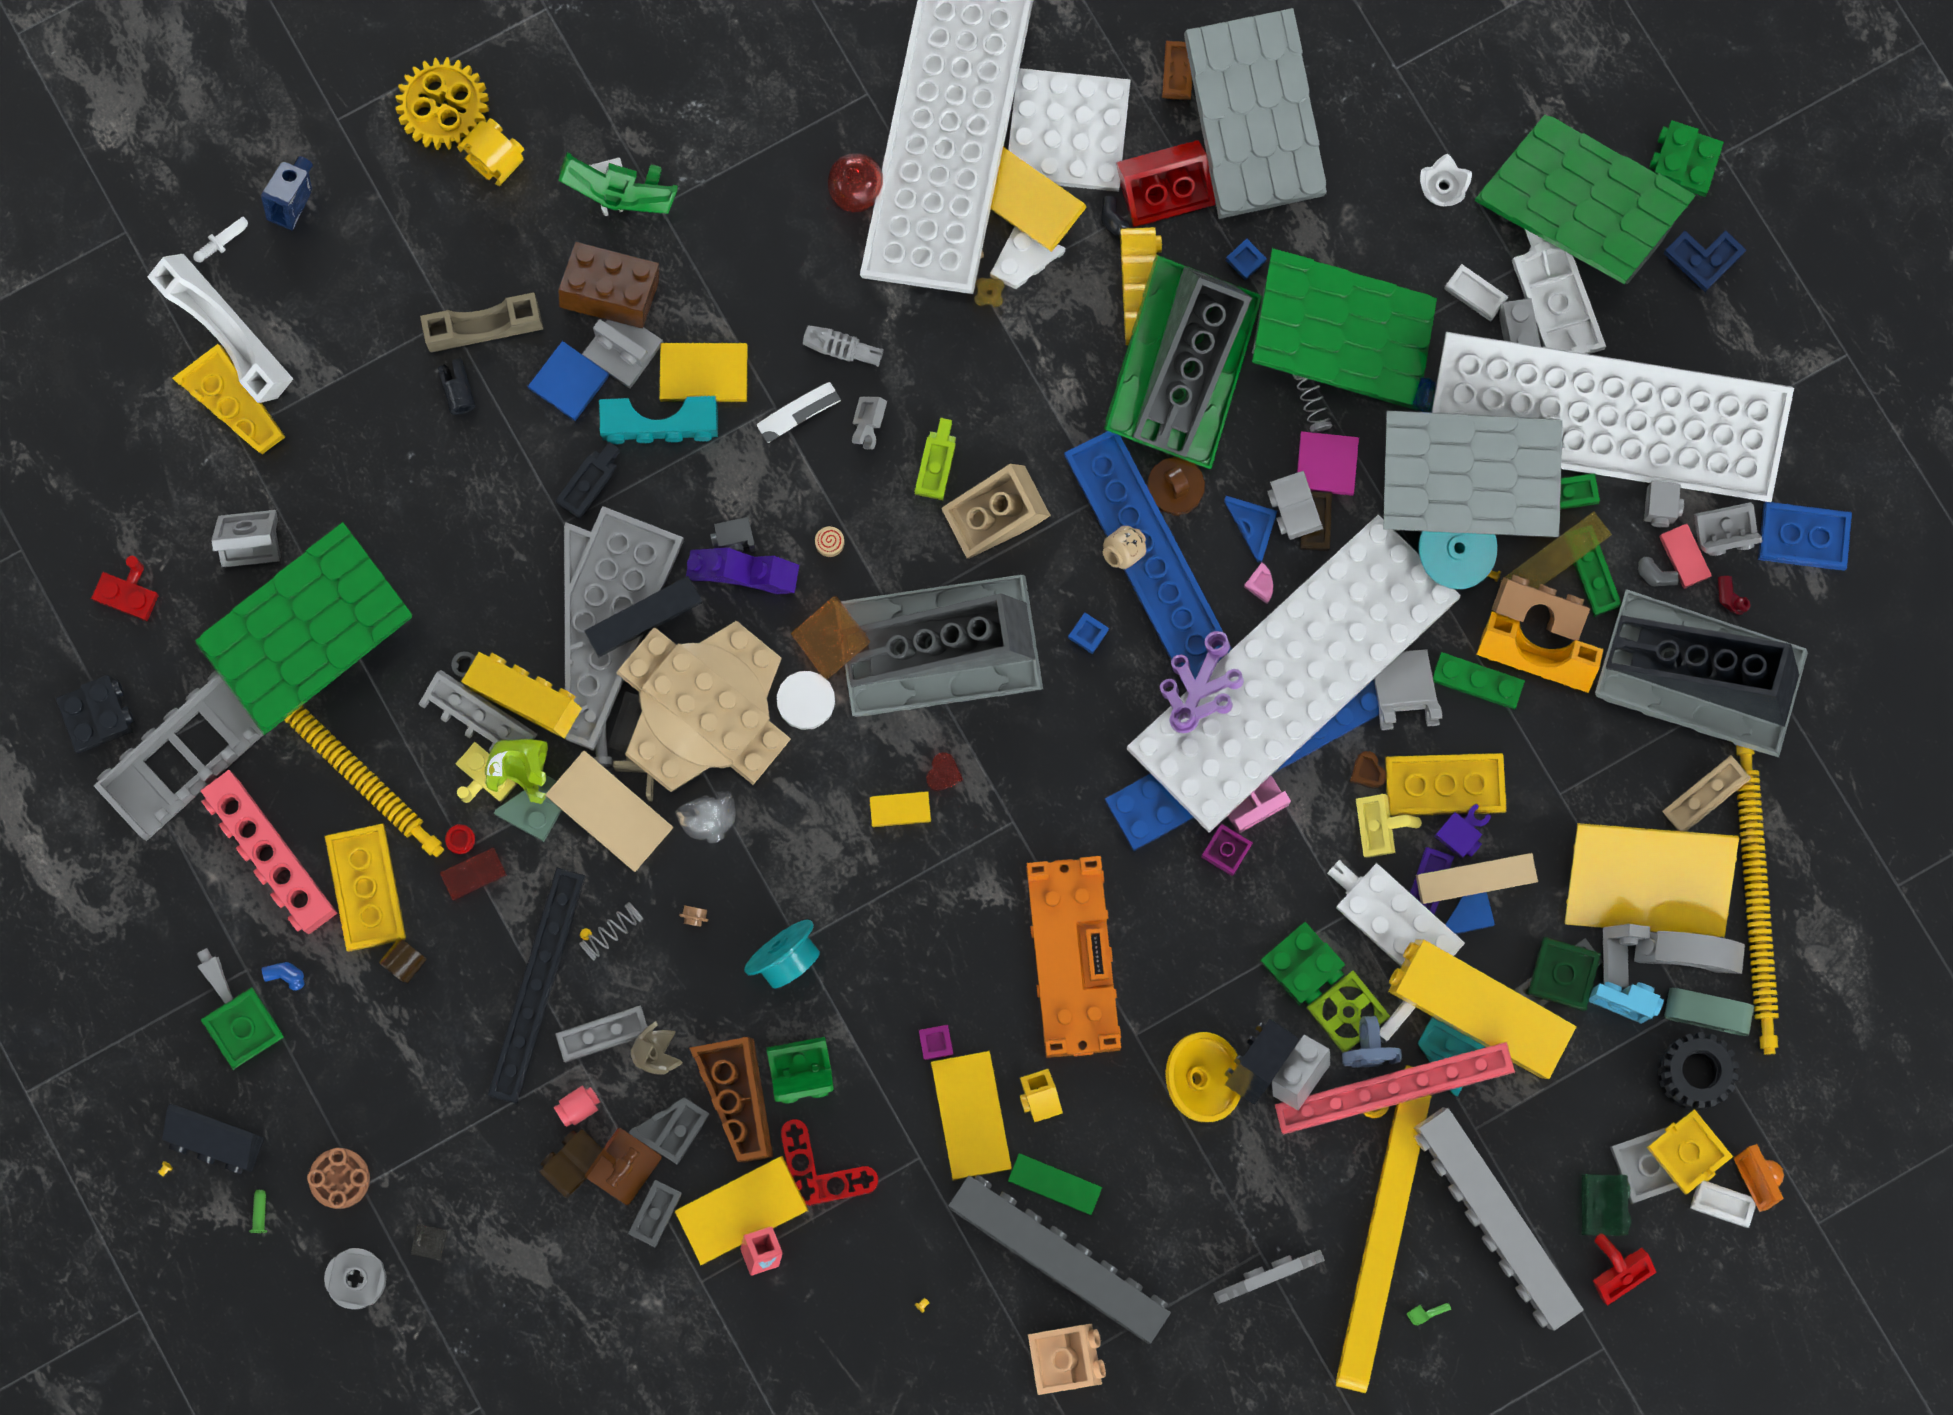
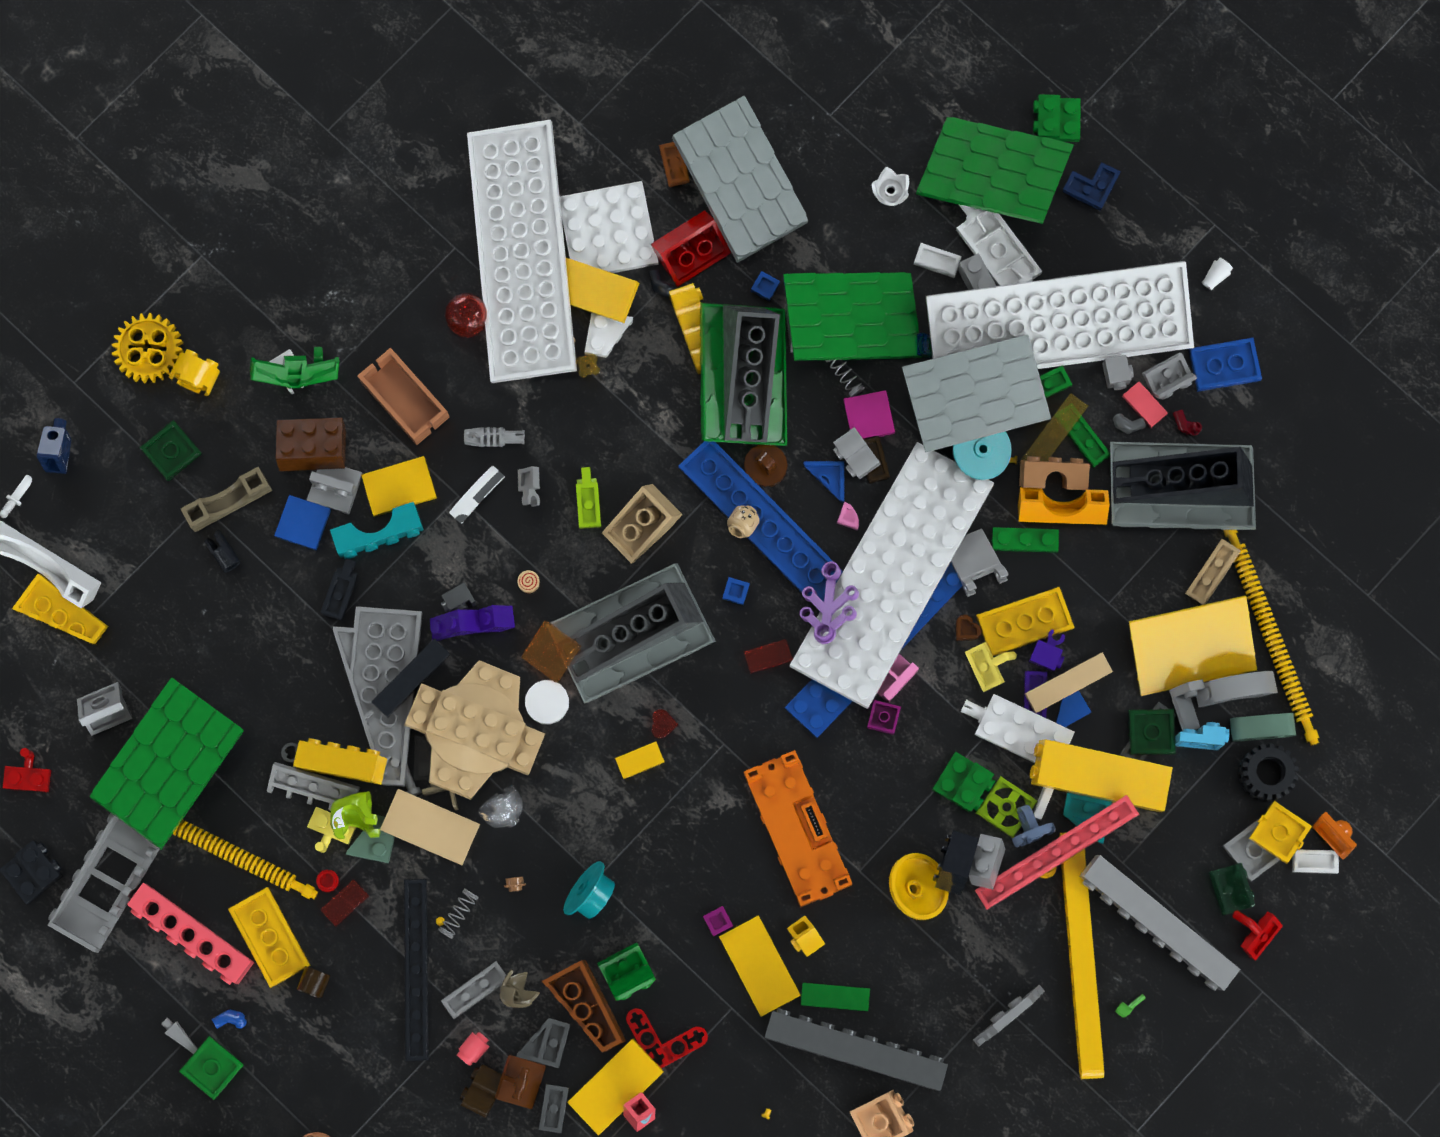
camera: 15 degrees left, 0 degrees up
(431, 240) = (170, 450): none -> dark green tile
(744, 260) = (403, 396): none -> nougat piece
(1104, 727) = (768, 656): none -> clear red tile
(1831, 416) = (1217, 273): none -> white cone

